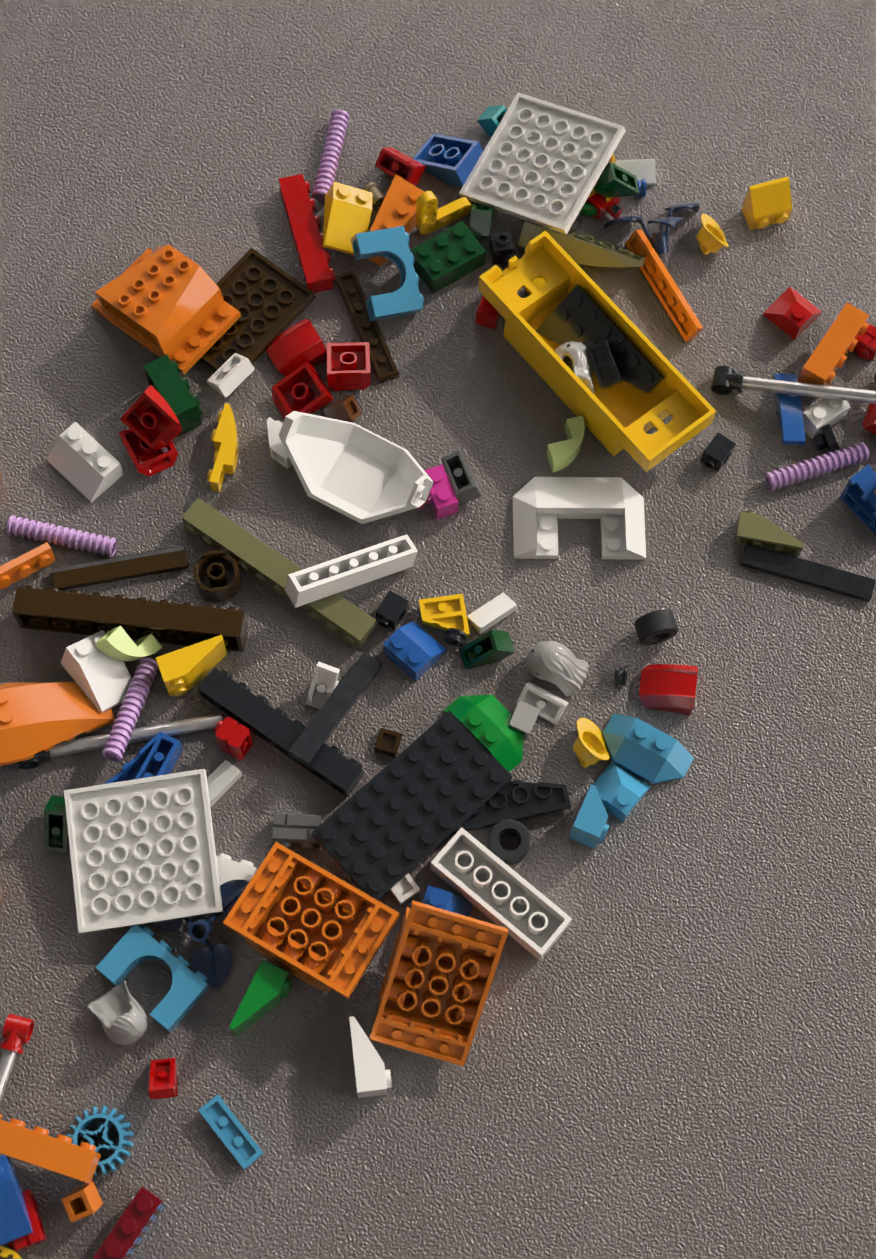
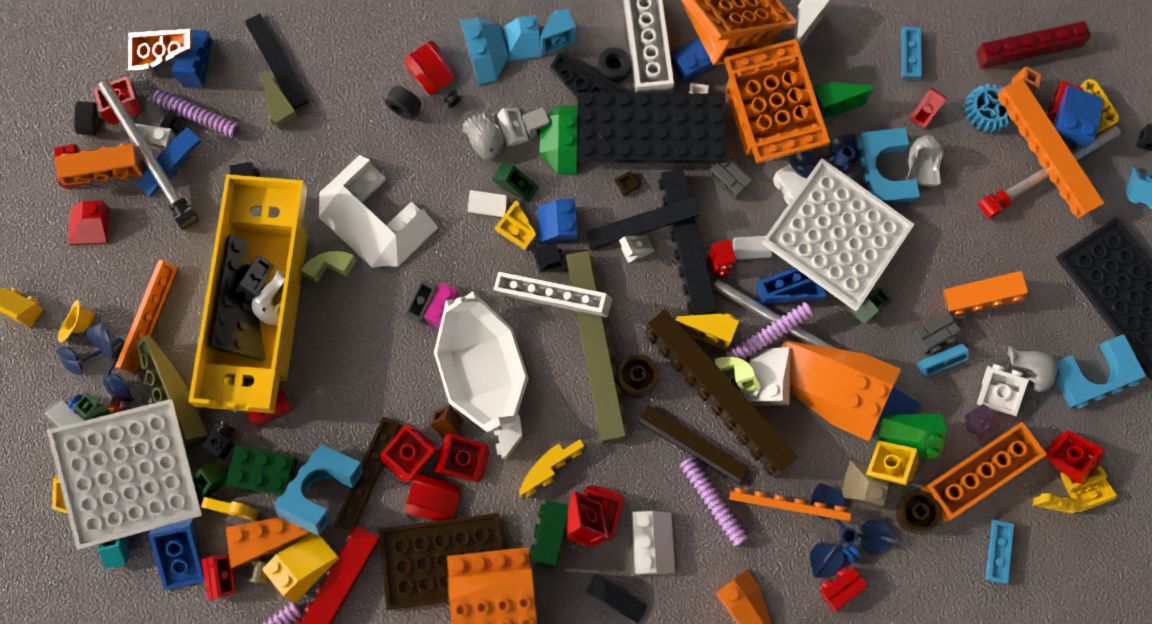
camera: 135 degrees left, 5 degrees up
(79, 399) = (616, 598): none -> black slope
(231, 374) = (496, 517): white slope -> none
(455, 637) = (526, 206): black bush -> none
(590, 743) = (513, 75): yellow piece -> none

